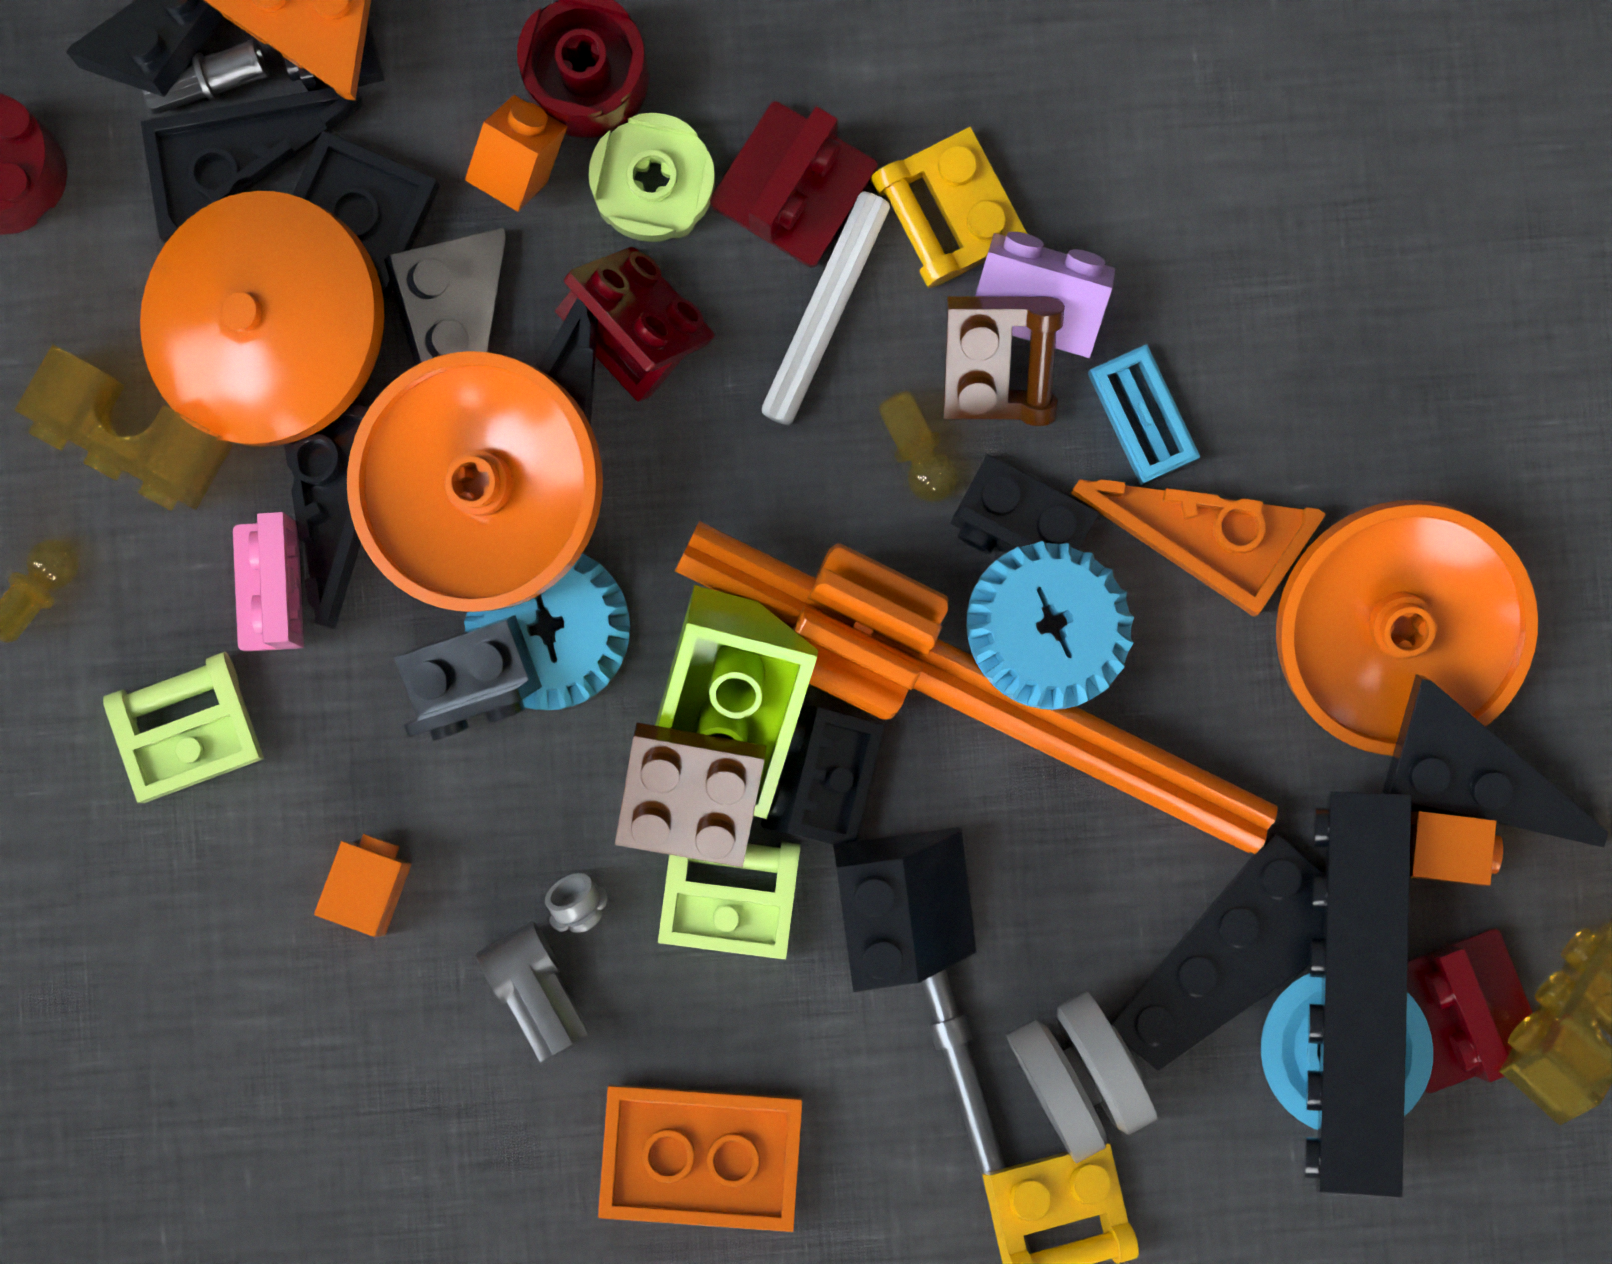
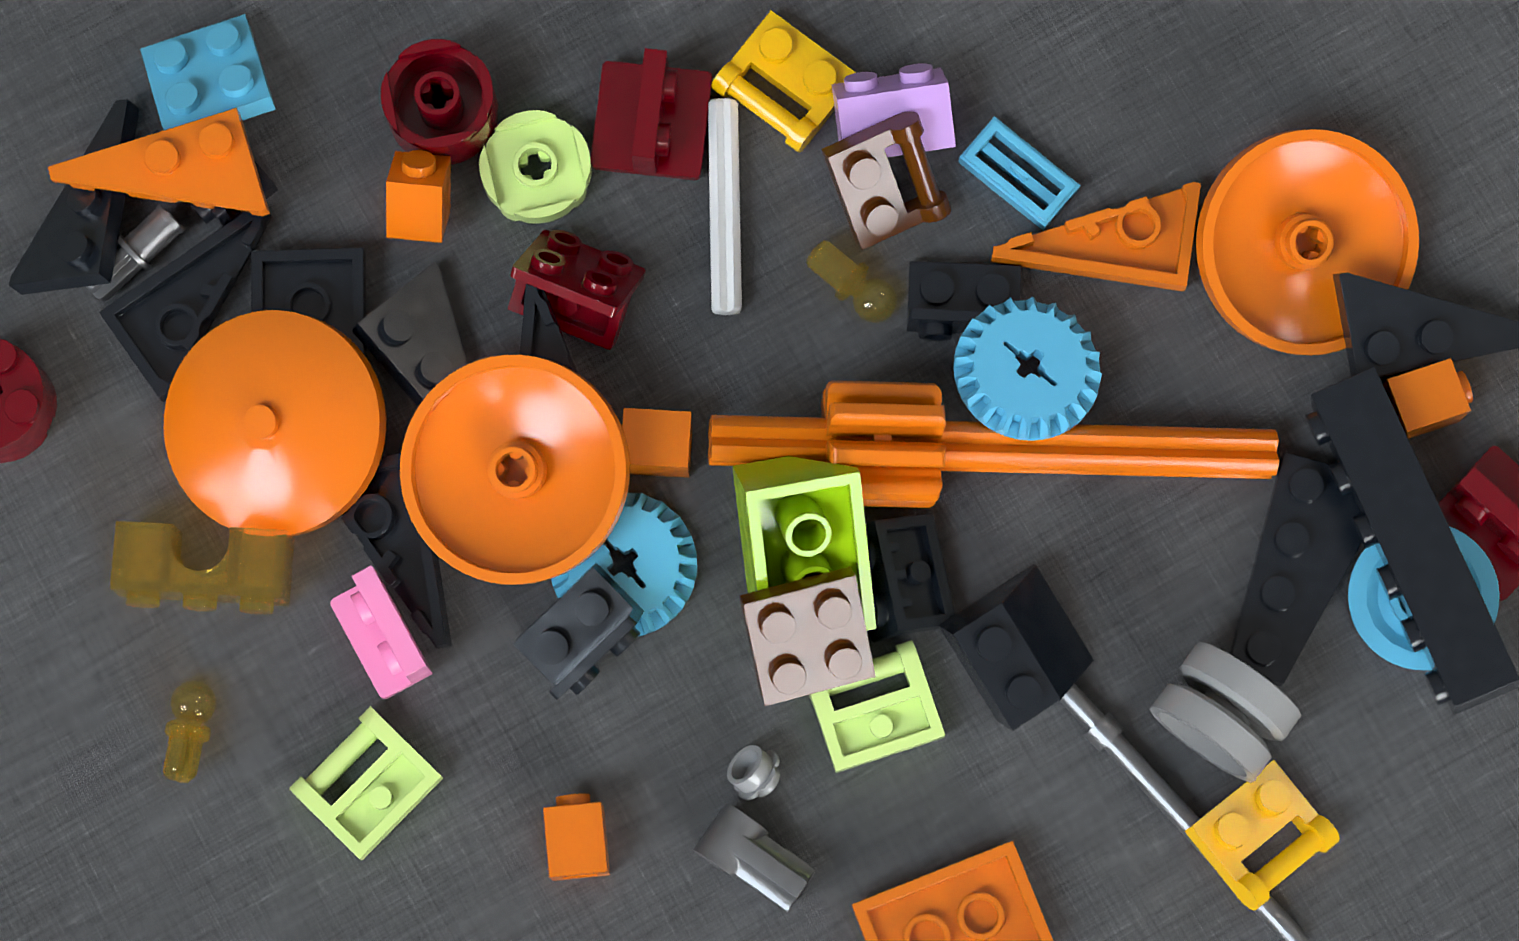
camera: 25 degrees left, 5 degrees down
(638, 519) = (658, 441): none -> orange brick

